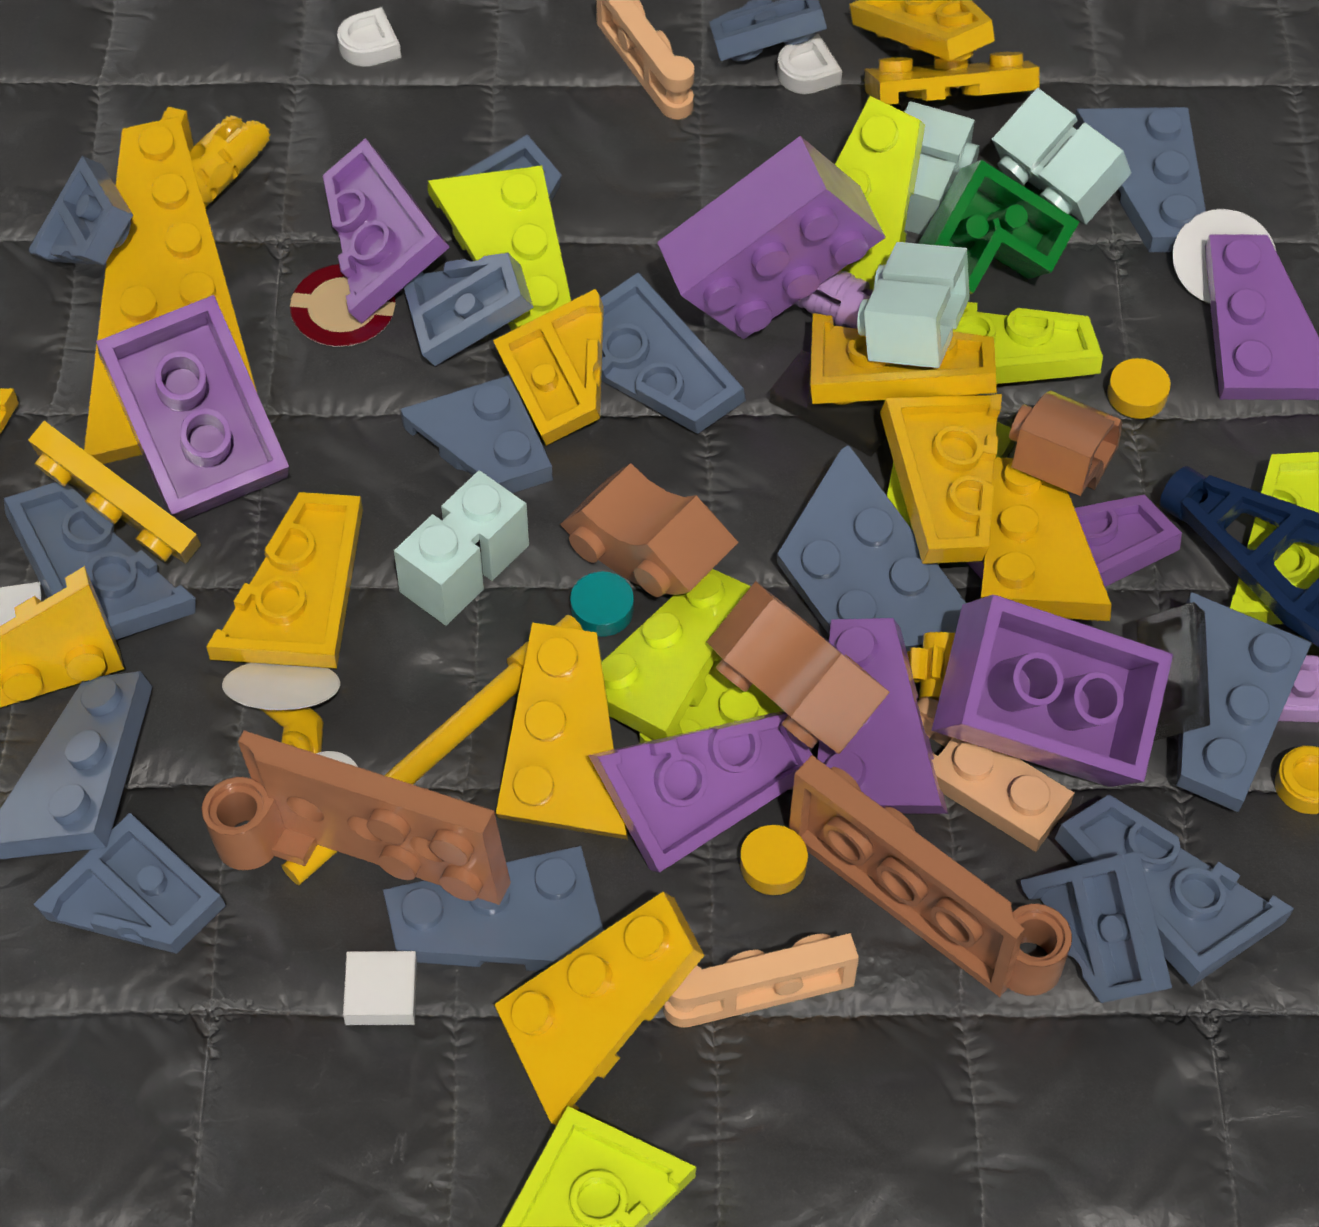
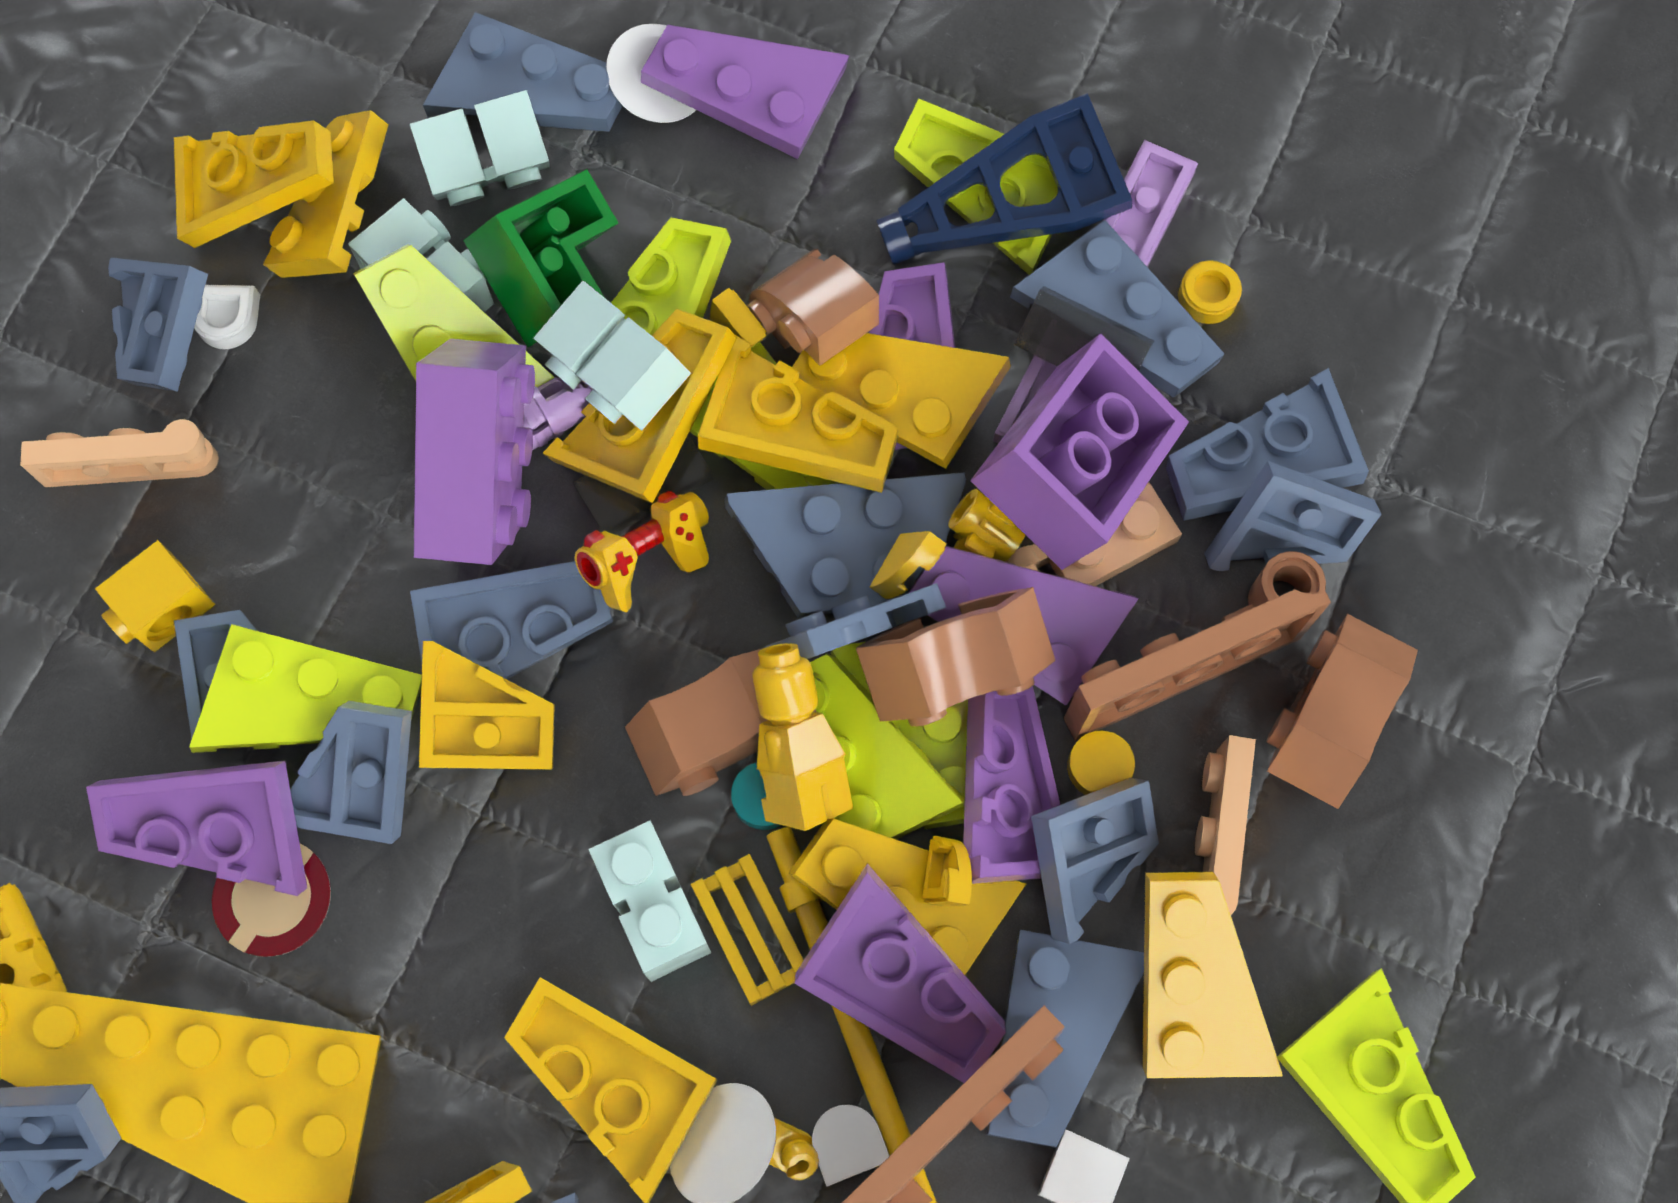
camera: 65 degrees left, 15 degrees up
(193, 409) = (368, 1113): medium lavender brick -> none
(461, 625) = (724, 879): none -> yellow tile
(484, 432) = (513, 821): sand blue wing -> none
(489, 729) = (899, 981): none -> medium lavender wing
(546, 112) = (151, 595): none -> yellow brick
(585, 740) = (947, 873): none -> yellow tile
(648, 572) = (796, 746): none -> yellow piece
(686, 857) = (1090, 850): none -> sand blue wing
(755, 559) = (859, 620): none -> sand blue wing
(806, 432) = (610, 559): none -> yellow piece
(861, 603) = (904, 558): none -> yellow tile
(959, 1037) = (1341, 710): none -> nougat brick
(1026, 391) = (733, 313): none -> yellow tile
(1138, 388) = (759, 217): yellow tile -> none

